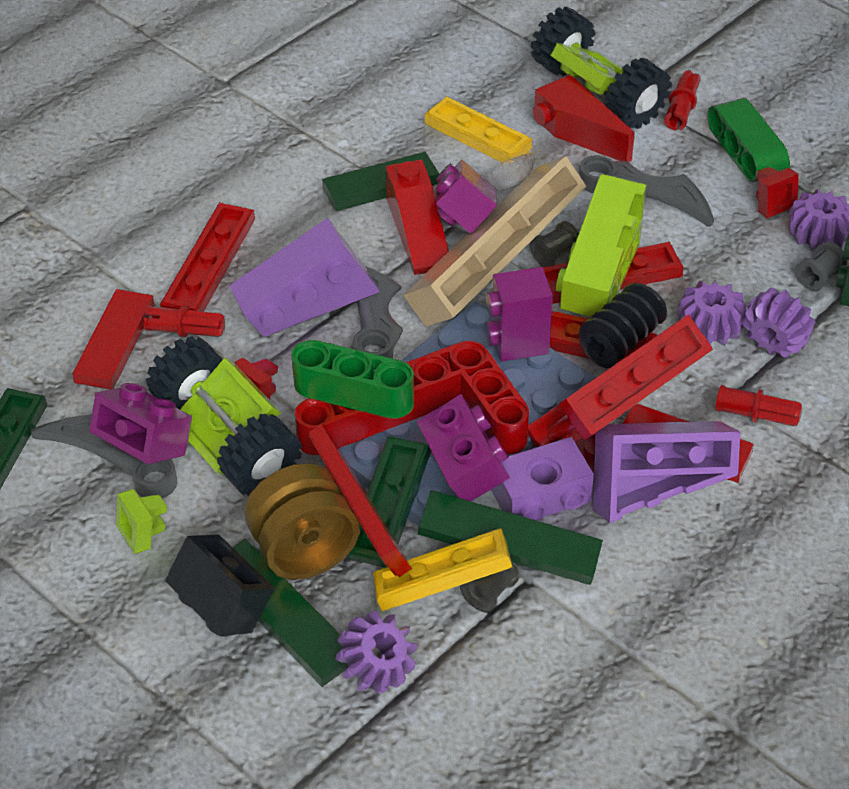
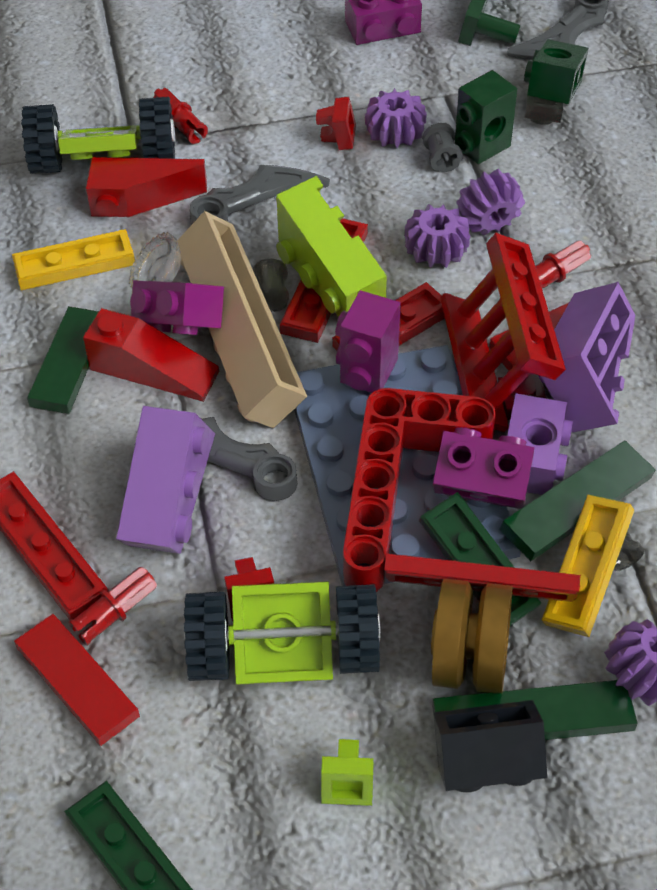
camera: 55 degrees left, 5 degrees up
(76, 432) = (194, 759): dark grey piece -> none
(140, 423) = (237, 708): magenta brick -> none
(353, 379) = (355, 515): green beam -> none
(622, 324) = (419, 288): black piece -> none
(747, 137) = (265, 105): green beam -> none

